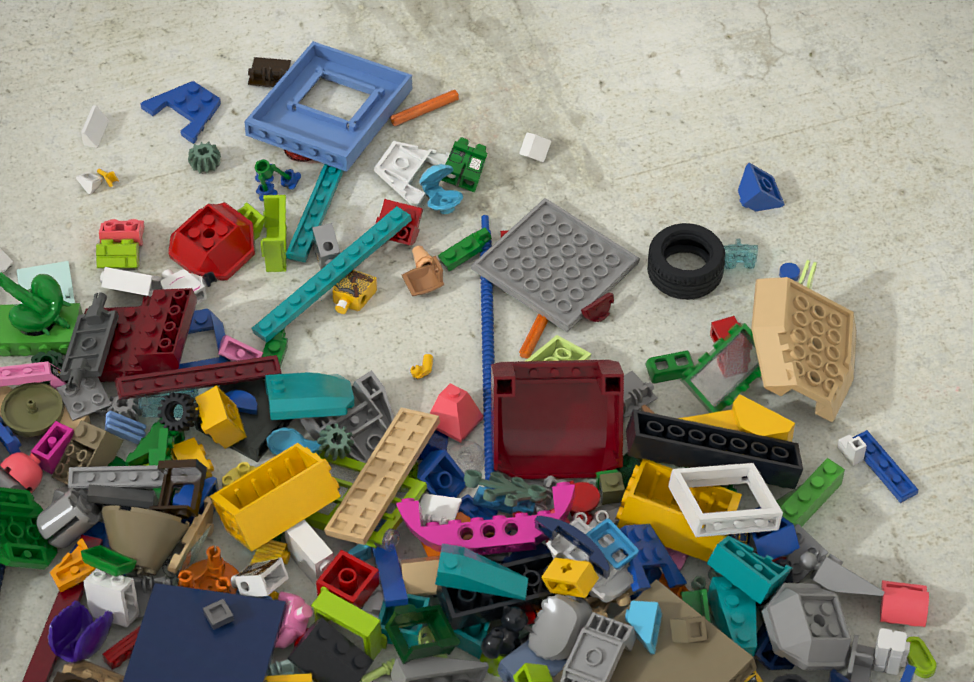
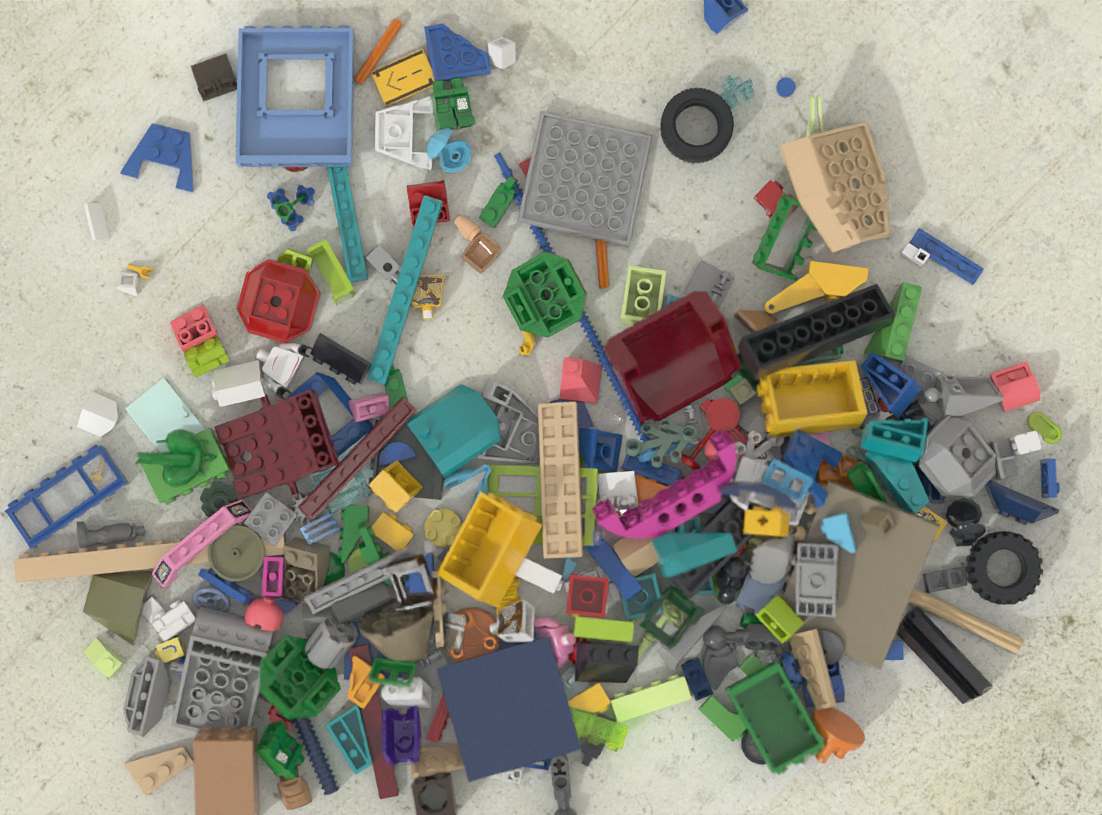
camera: 25 degrees left, 35 degrees up
(28, 616) = (351, 739): none -> teal wedge
(51, 473) = (287, 605): none -> clear blue slope
(89, 343) = (246, 471): dark grey plate -> none
(188, 415) = (360, 513): black tyre -> none
(204, 157) = (210, 205): sand green gear -> none
(218, 614) = (505, 677): flat silver plate -> none
(237, 302) = (340, 359): none -> black slope
(337, 434) = (497, 469): sand green gear -> none
(434, 132) = (403, 78): none -> yellow tile
(462, 326) = (527, 296): none -> green piece
(490, 130) = (454, 55): none -> blue plate
(599, 309) = (645, 210): dark red plate -> none
(673, 371) = (735, 243): green piece -> none
(731, 521) = (868, 412): white window -> none

